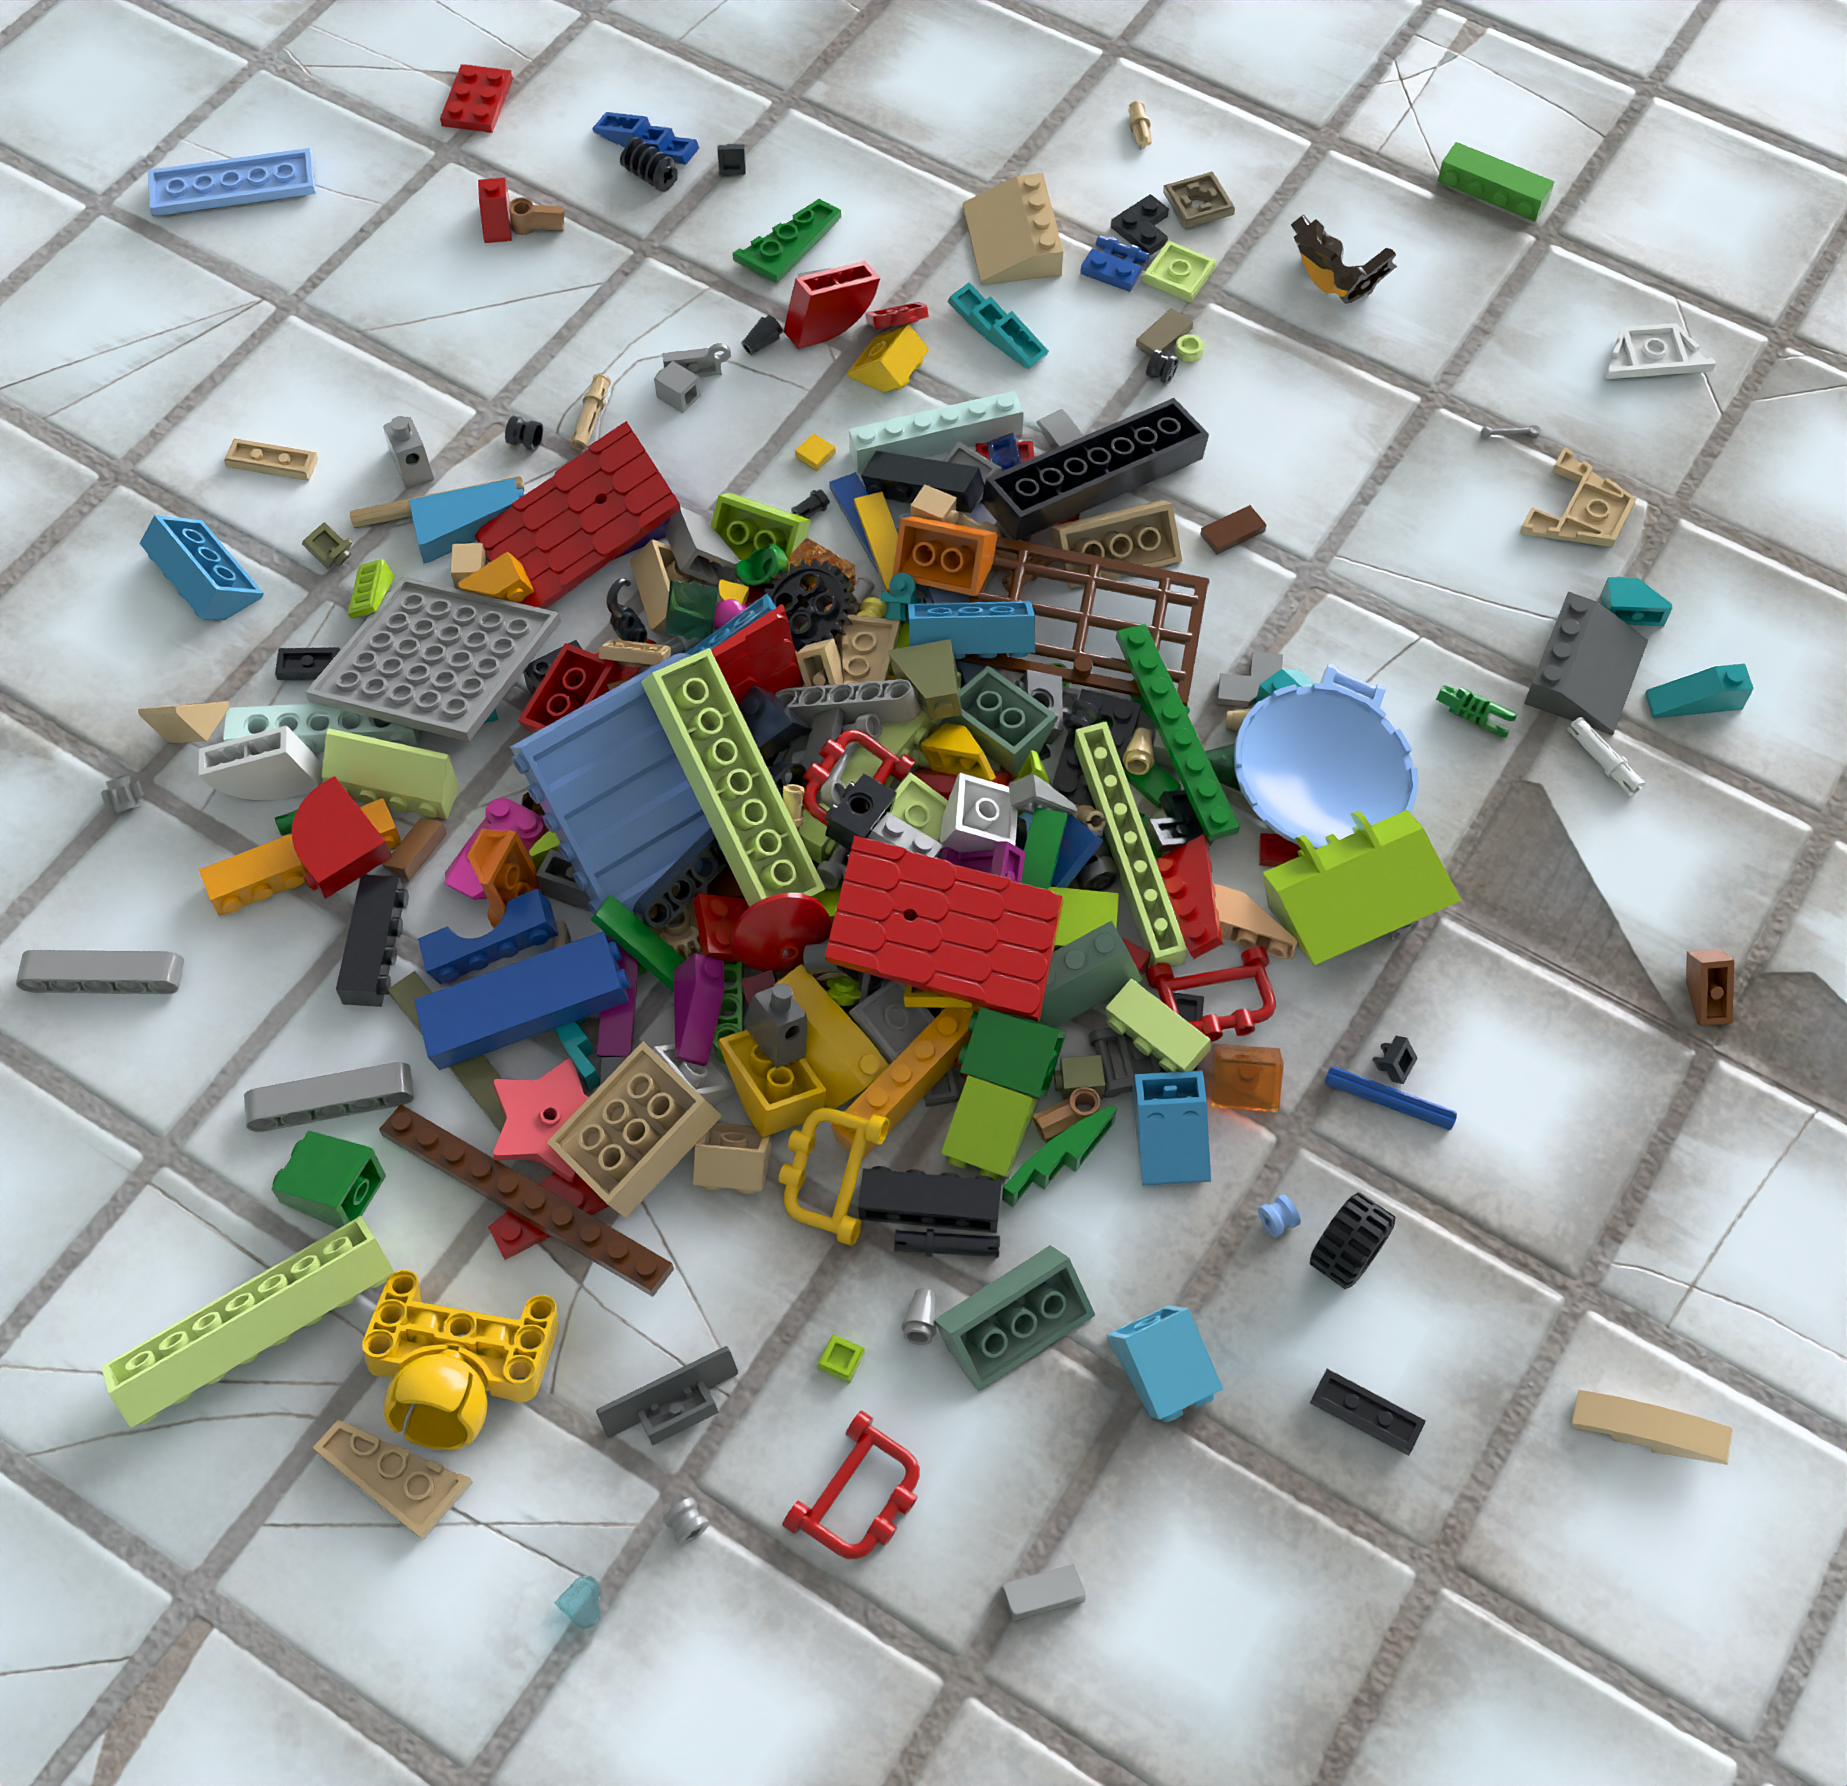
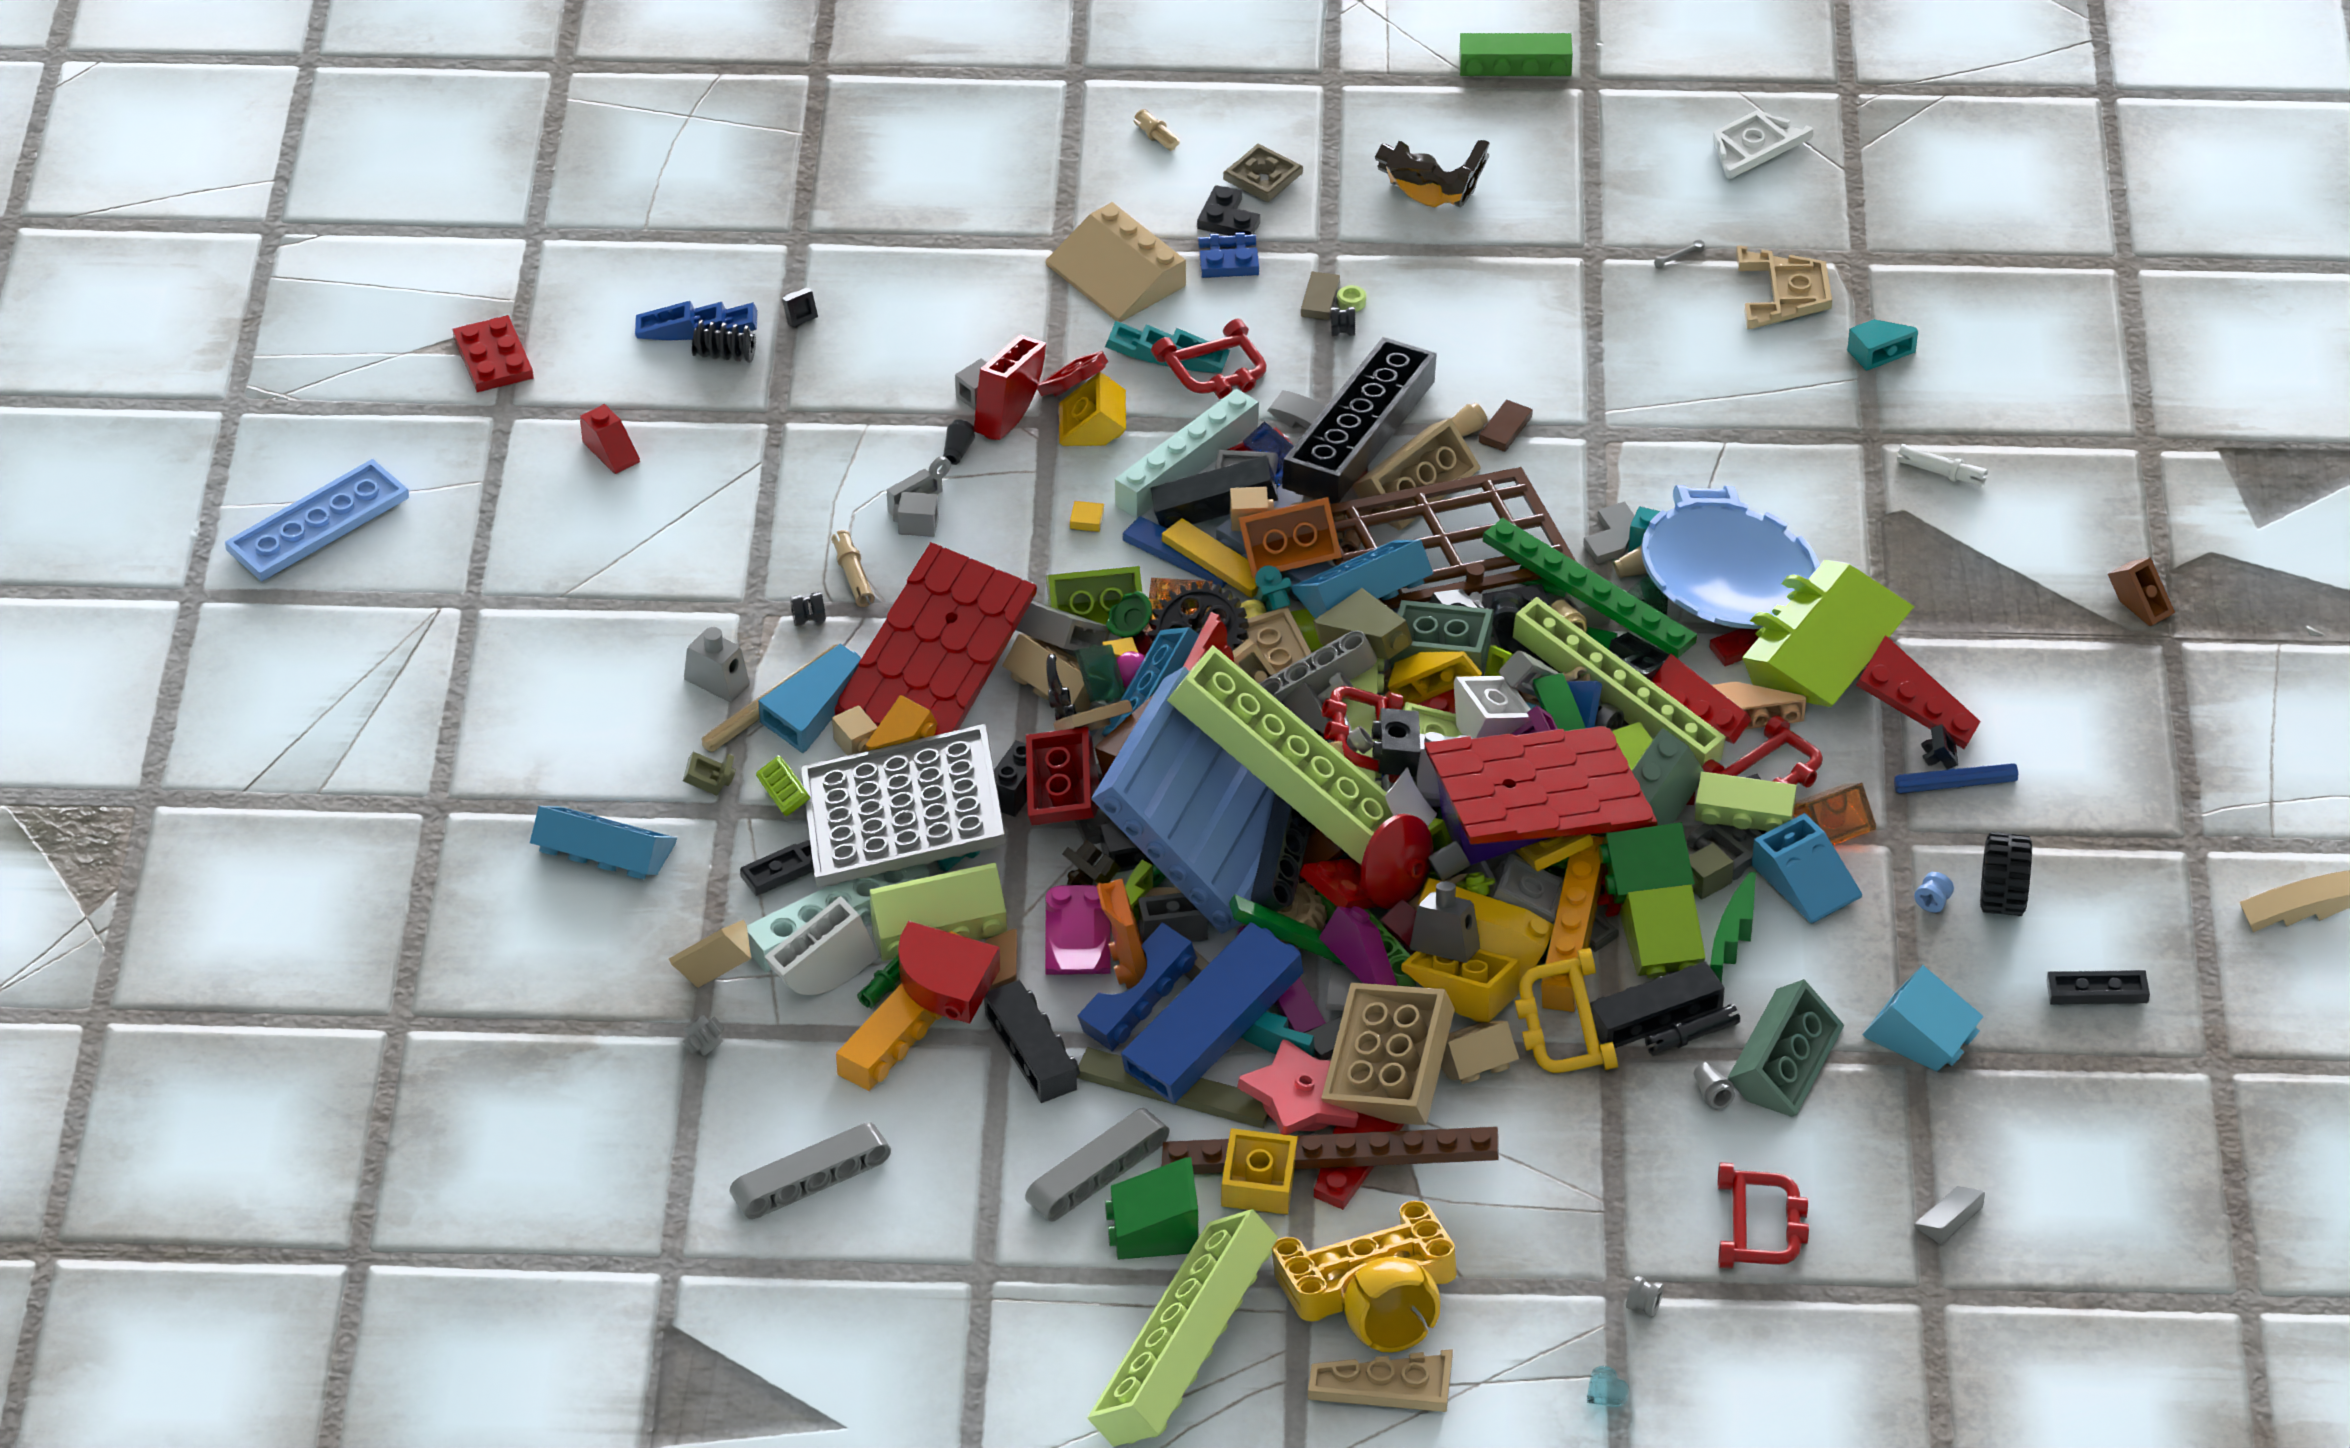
camera: 30 degrees left, 15 degrees down
(271, 459) = (580, 731): tan tile -> none
(443, 1185) = (1259, 1171): none -> yellow slope
(528, 217) = (648, 430): medium nougat piece -> none
(672, 1400) = (1565, 1228): dark grey bracket -> none
(788, 242) = (913, 357): green wing -> none
(814, 503) = (1124, 554): black pin -> none
(824, 878) = (1407, 799): none -> white sticker
(841, 1358) = (1672, 1144): lime tile -> none
(1062, 339) = (1235, 335): none -> red bar
(1065, 1114) = (1716, 898): medium nougat piece -> none
(1179, 271) = (1291, 239): yellowish green tile -> none
(1197, 510) = (1470, 419): none -> tan cone
(1405, 990) = (1911, 690): none -> red wing
(1476, 709) = (1813, 474): green hinge -> none
(1587, 665) = (1875, 404): dark grey slope -> none
(1702, 692) = (1984, 385): teal slope -> none

